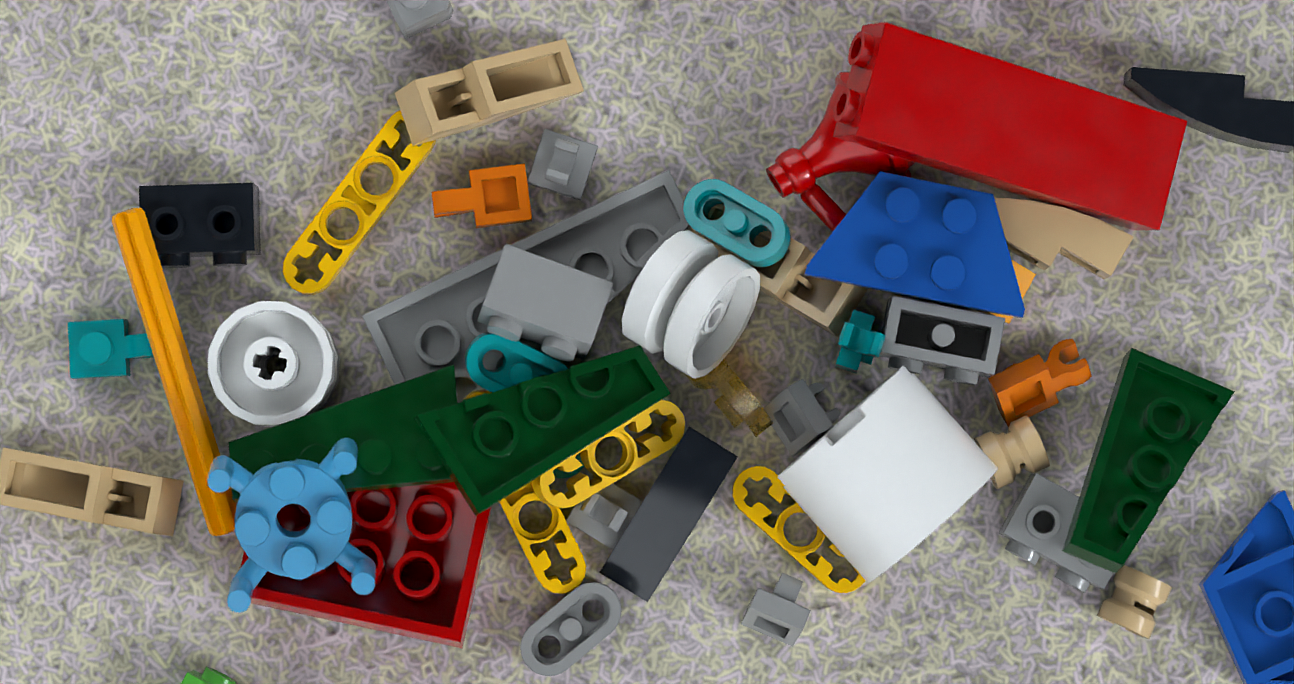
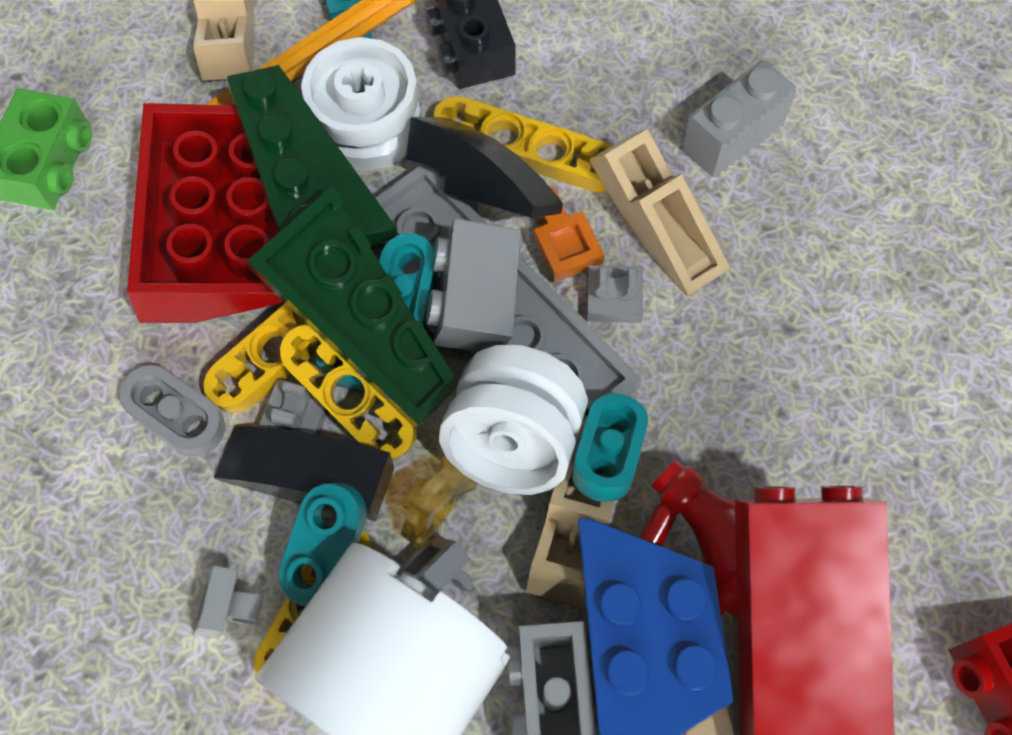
camera: 75 degrees right, 20 degrees down
(285, 551) = (201, 95): dark azure plate -> none
(399, 261) = (480, 167): none -> black slope
(759, 508) = (317, 543): none -> teal plate
(858, 342) = (524, 604): teal plate -> none

